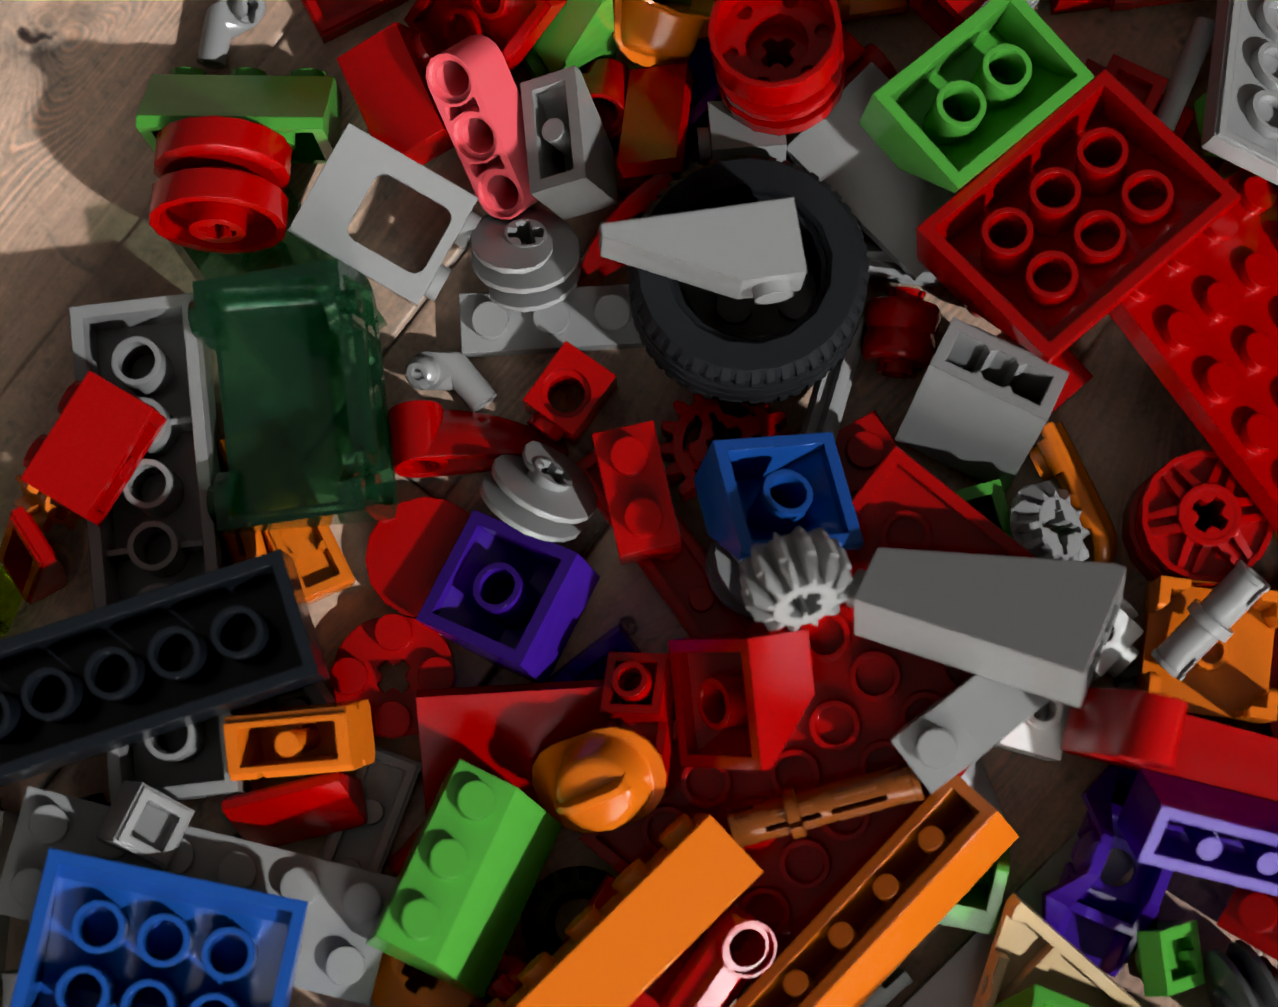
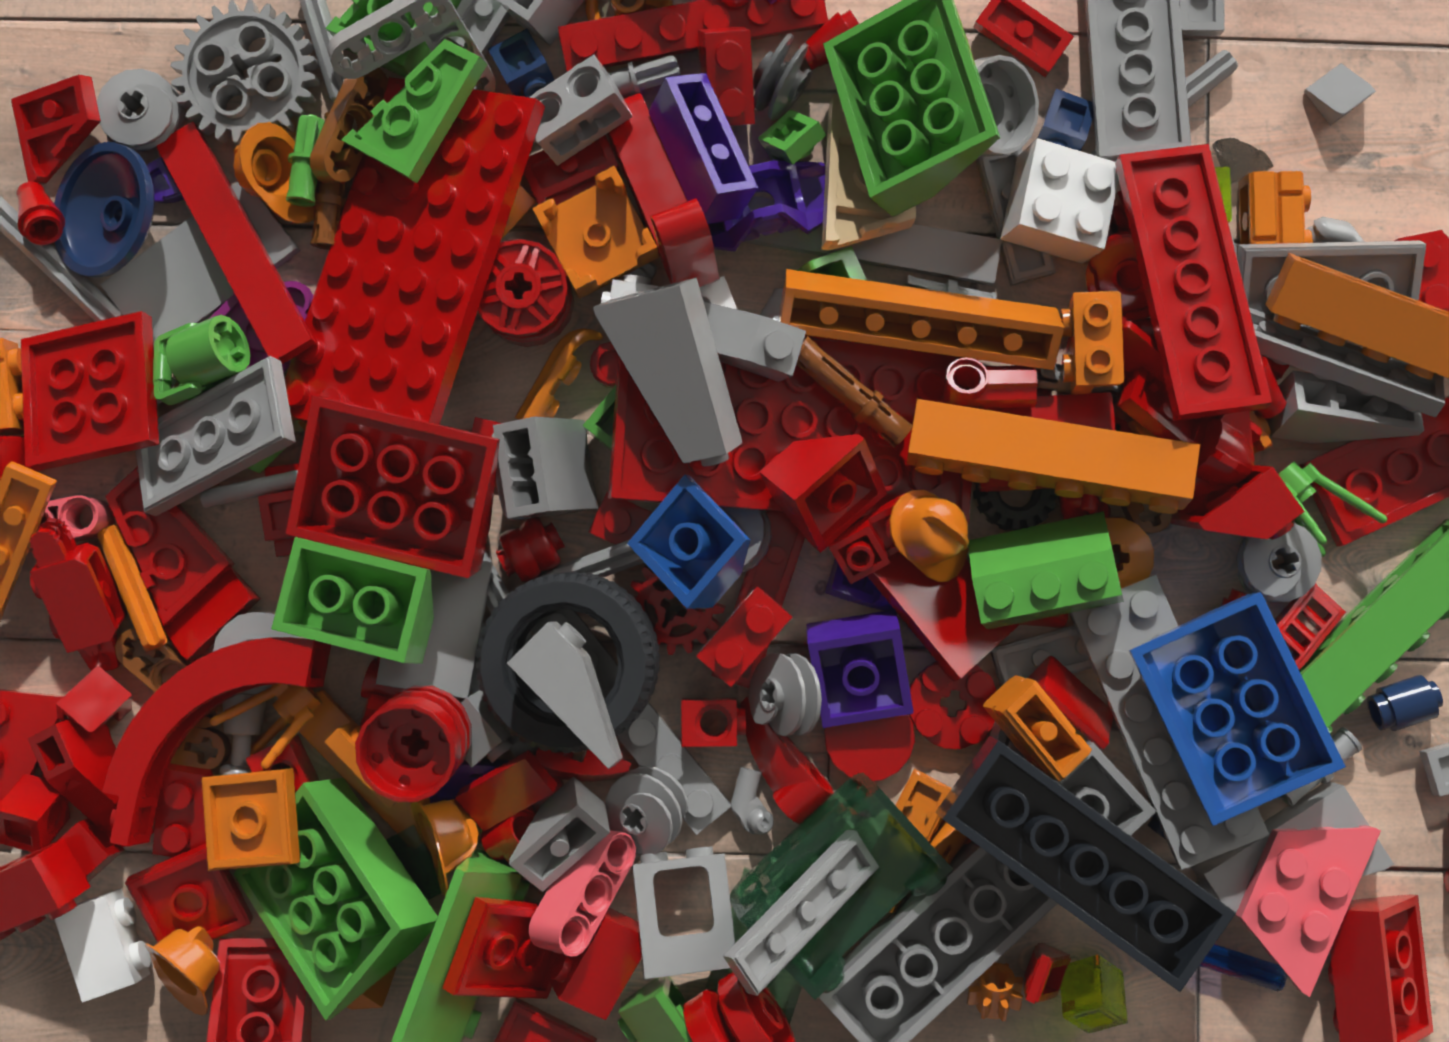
camera: 130 degrees left, 5 degrees up
(92, 447) = (959, 984): red brick -> none
(145, 823) = (1153, 782): light grey slope -> none
(295, 333) = (801, 912): none -> light grey tile
(795, 579) = (738, 497): light grey gear -> none
(1043, 504) = (579, 388): light grey gear -> none
(1210, 620) = (581, 243): light grey pin -> none

